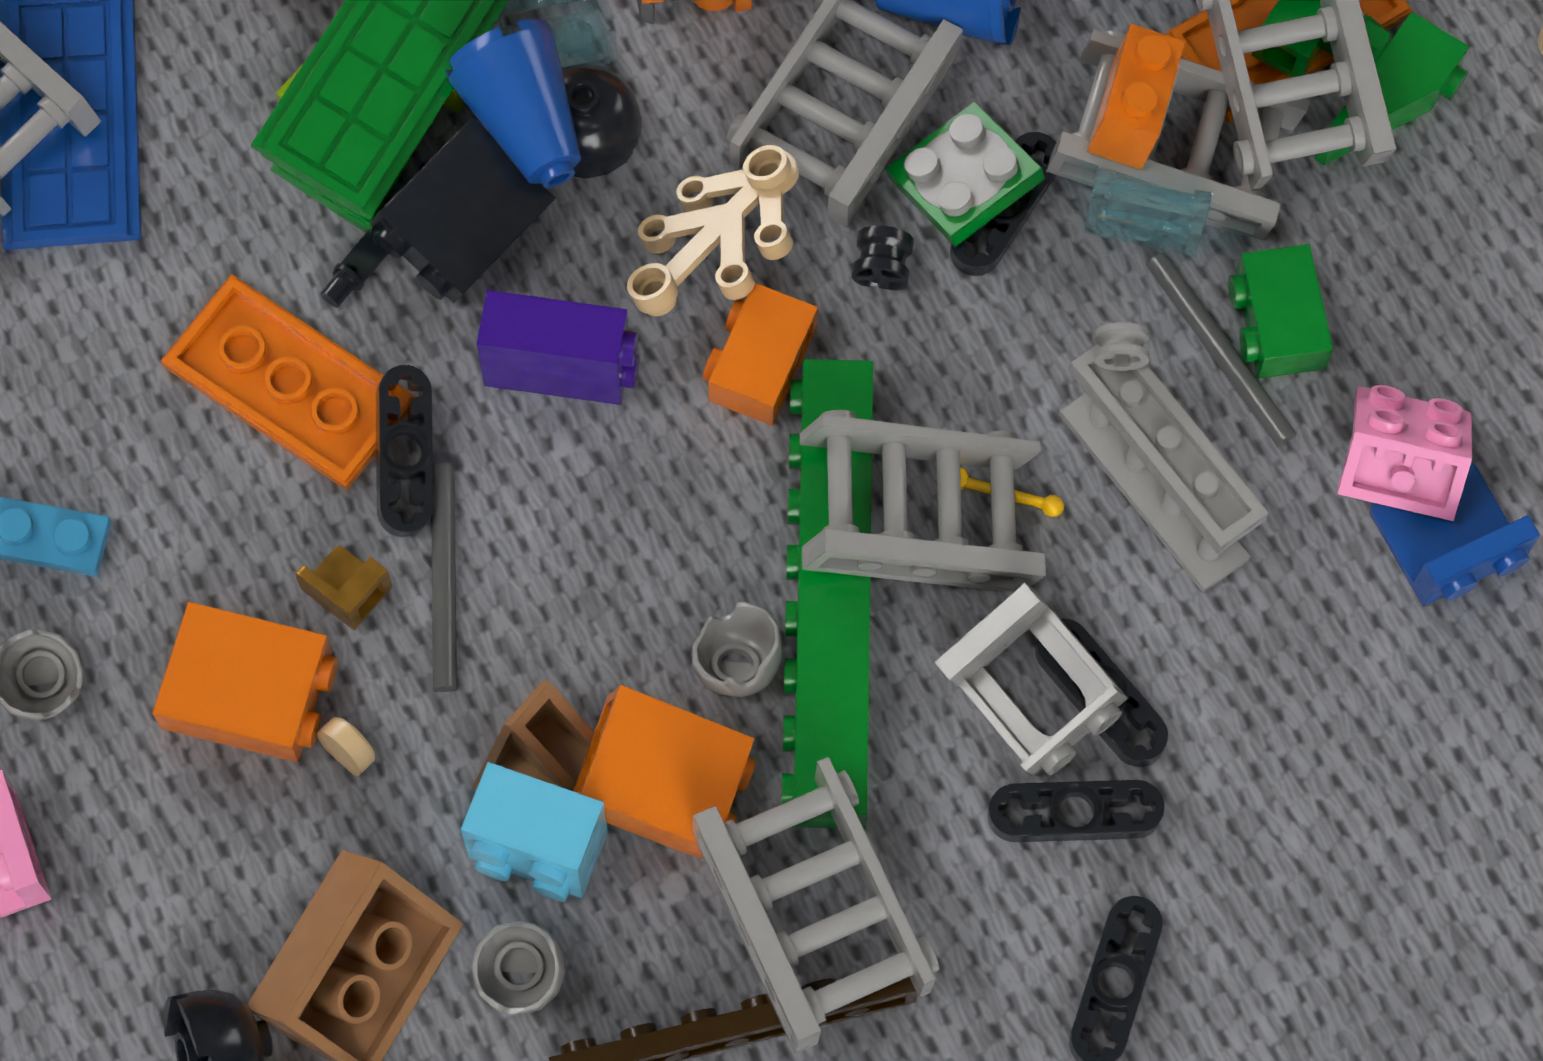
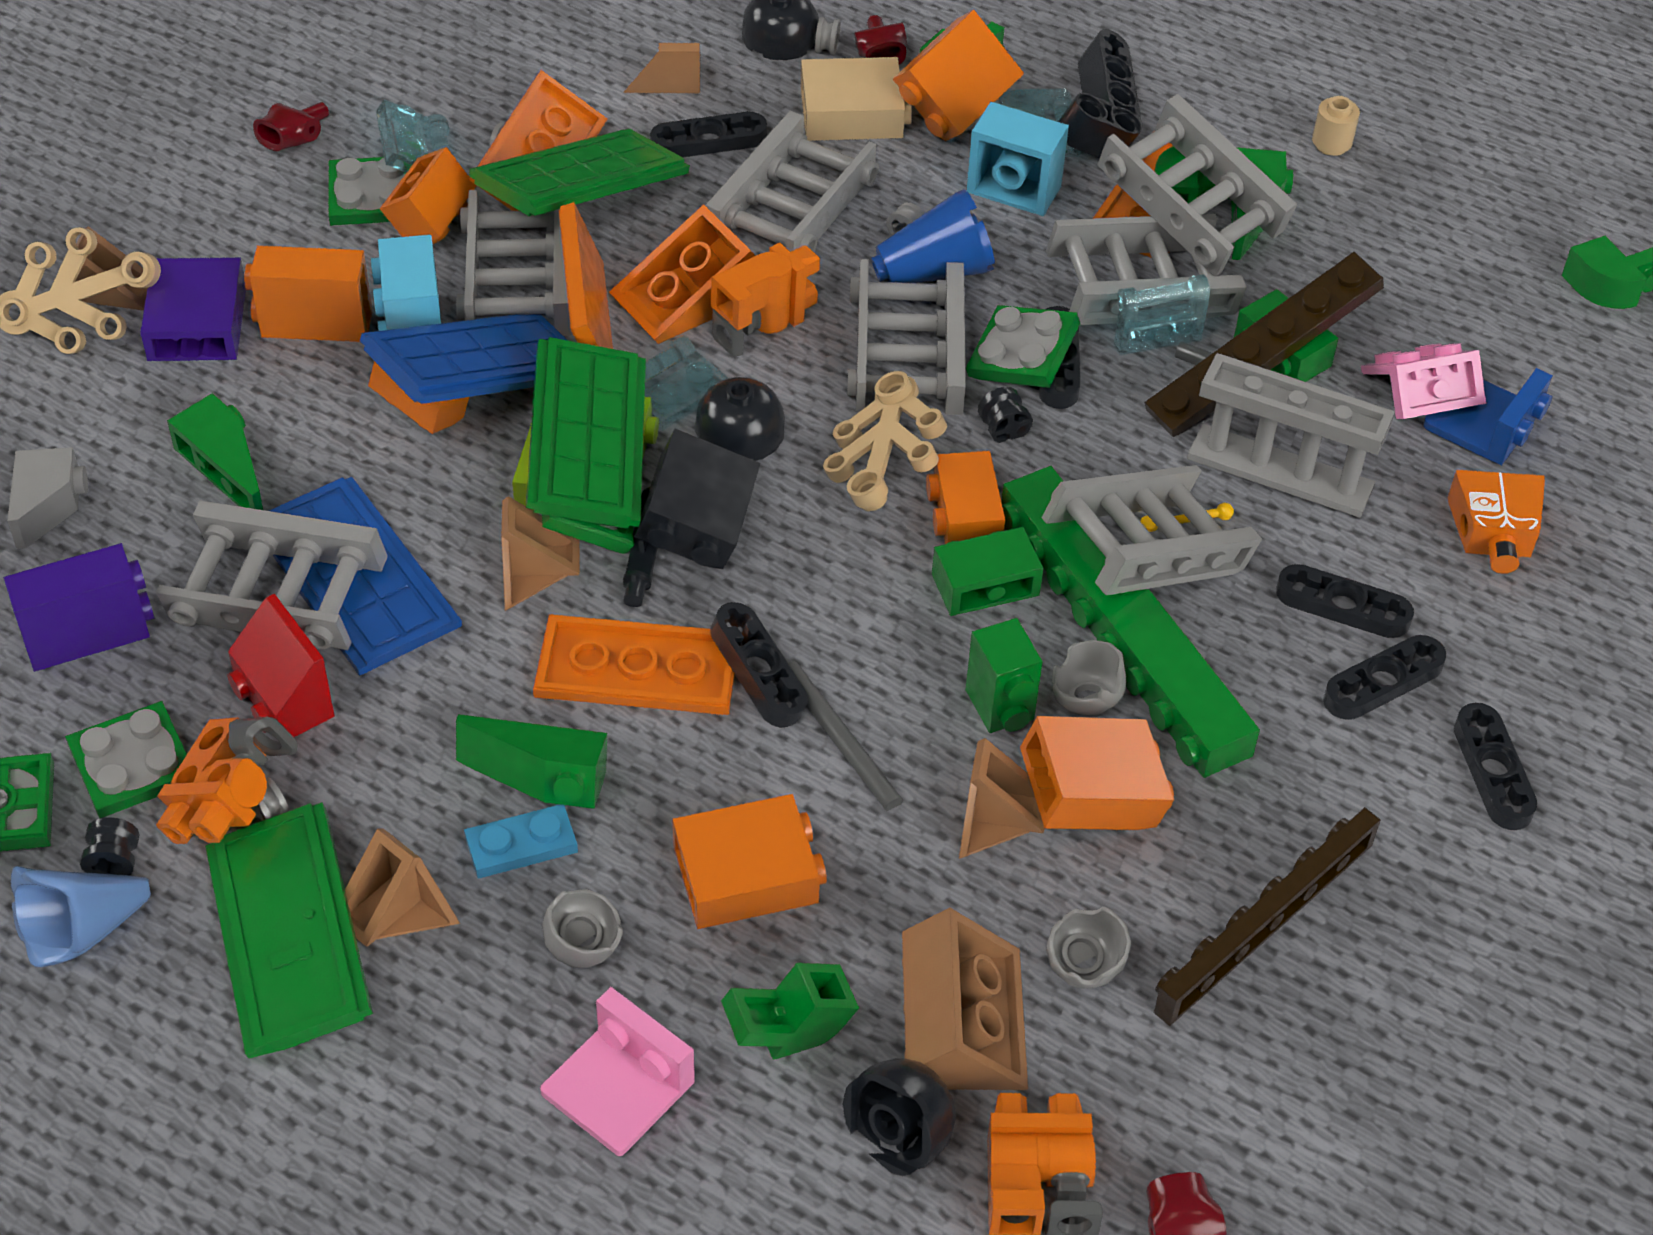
camera: 30 degrees left, 20 degrees down
(117, 463) = (536, 759): none -> green slope
(170, 883) = (795, 1016): none -> green brick
(247, 196) = (532, 554): none -> medium nougat slope
(346, 585) = (775, 772): pearl gold panel -> none
(346, 745) = (852, 867): tan tile -> none
(521, 99) = (701, 399): blue cone -> none
(534, 832) = (1039, 846): medium azure brick -> none
(556, 347) = (828, 546): dark purple brick -> none
(635, 608) = (1003, 676): none -> green brick
(722, 455) = (987, 571): none -> green brick
(778, 952) = (1257, 826): light grey fence -> none
(989, 638) = (1345, 589): light grey panel -> none
(1121, 346) = (1232, 352): light grey bush -> none
(1136, 96) = (1115, 239): orange brick -> none
(1254, 312) = (1271, 338): none -> dark brown plate
(1356, 677) = (1497, 514): none -> orange torso

